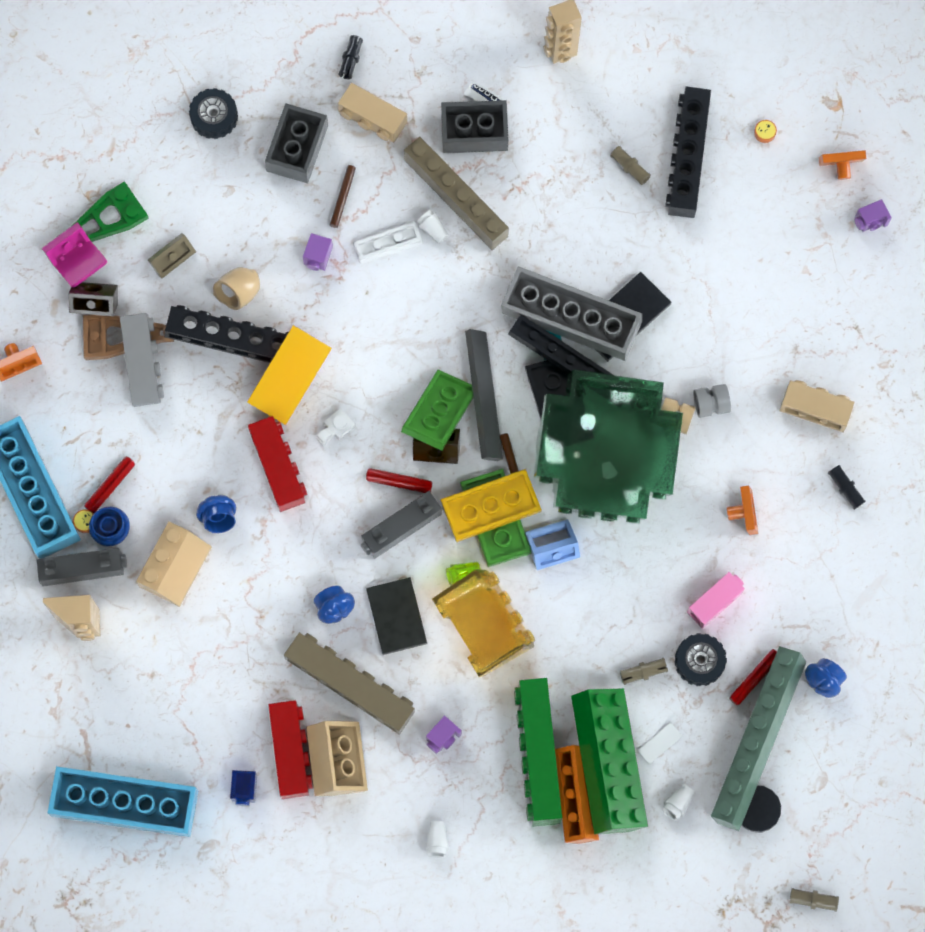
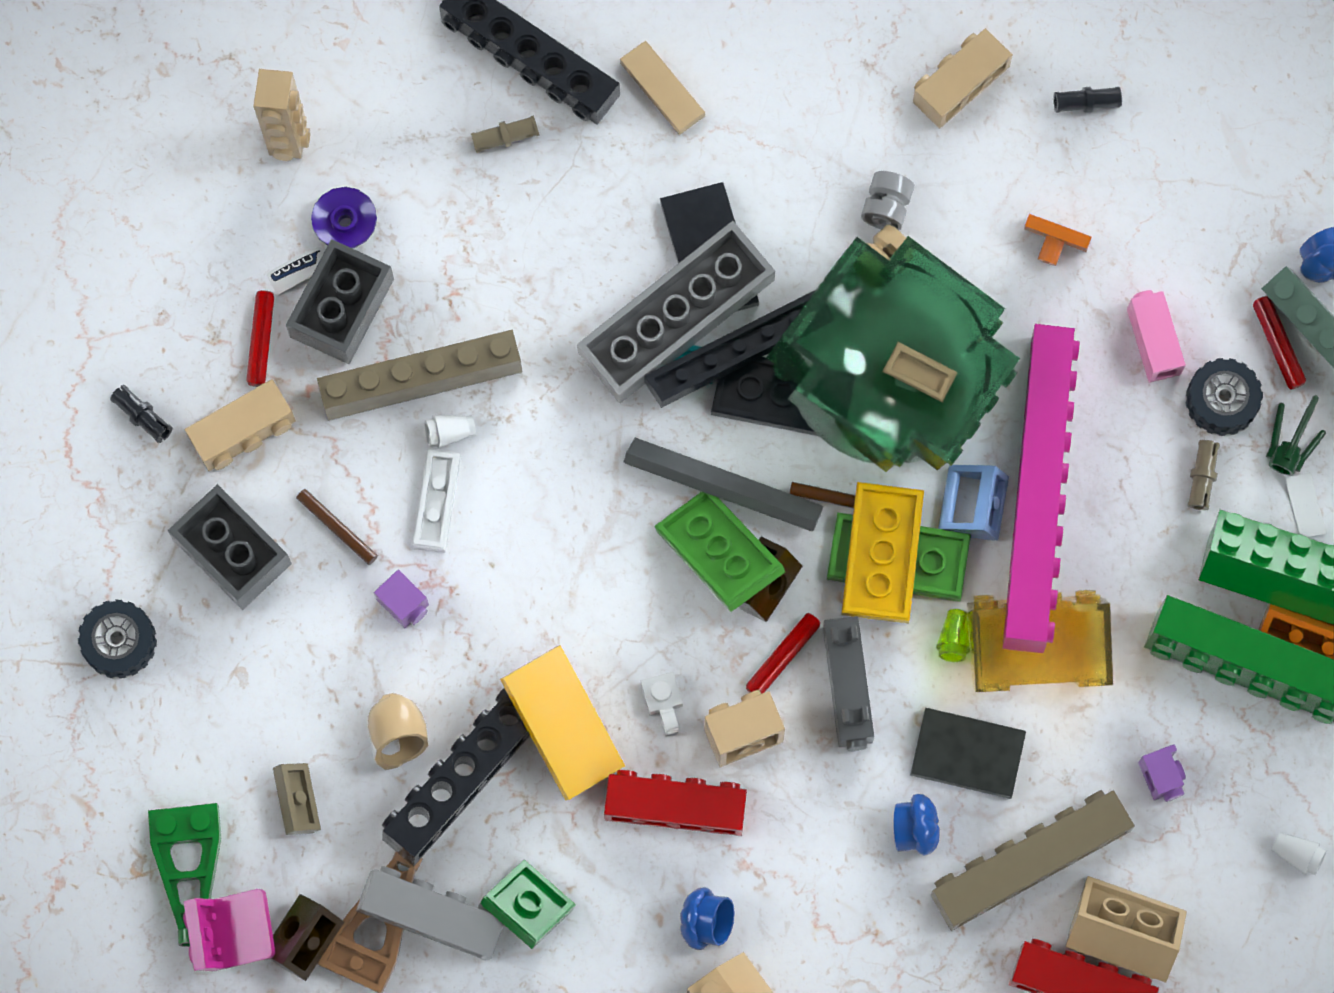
camera: 60 degrees left, 0 degrees up
(175, 410) = (527, 904): none -> tile
(339, 476) = (743, 727): none -> tan brick
(431, 97) = (260, 338): none -> red axle
(531, 95) = (342, 204): none -> dark purple dish
(578, 574) = (1038, 489): none -> dark pink brick
(613, 471) = (920, 372): none -> tan tile
(683, 714) = (1287, 457): none -> dark green plant
(711, 238) = (662, 87): none -> tan tile

